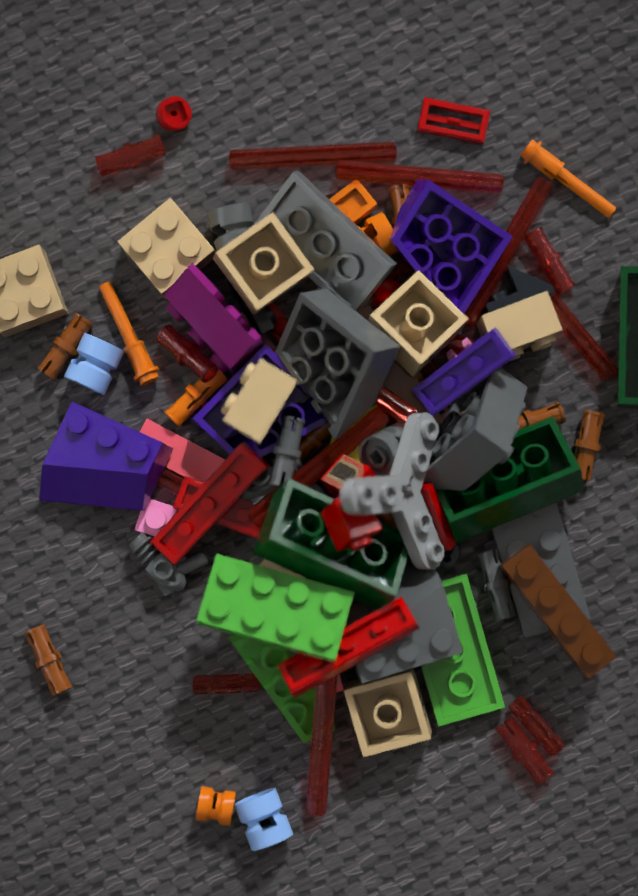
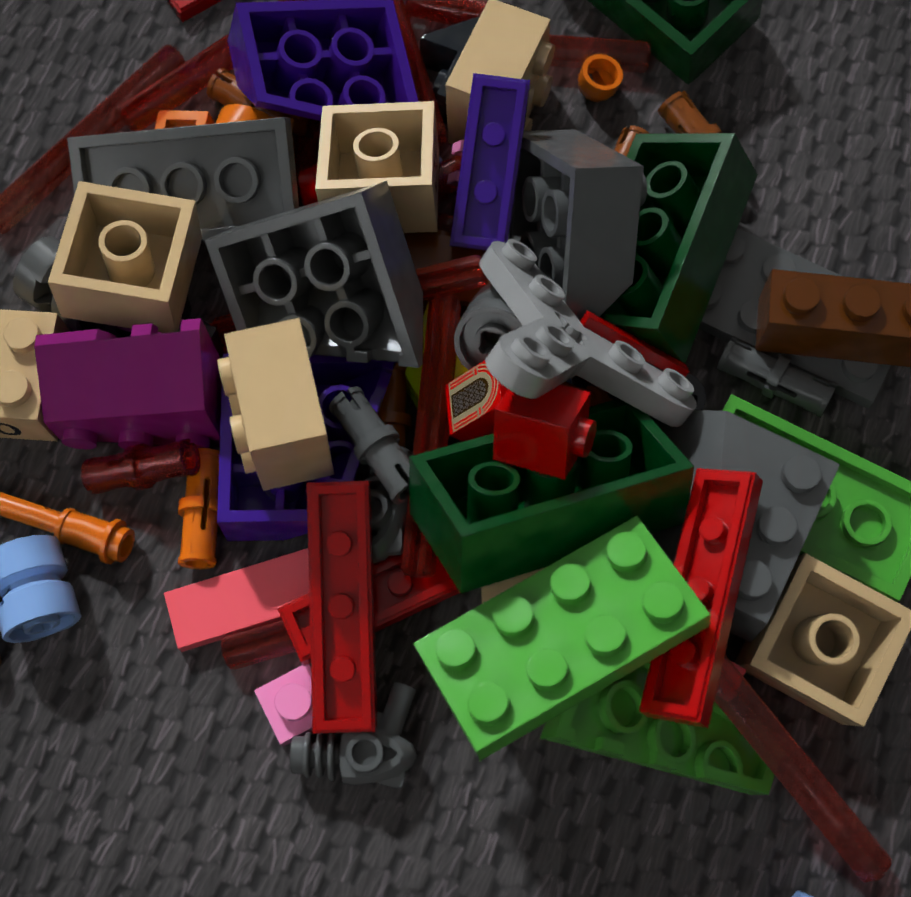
camera: 45 degrees left, 15 degrees down
(101, 463) = (152, 698): dark purple wedge -> none
(225, 683) = (592, 822): clear red axle -> none
(580, 368) = (605, 73): none -> orange hinge

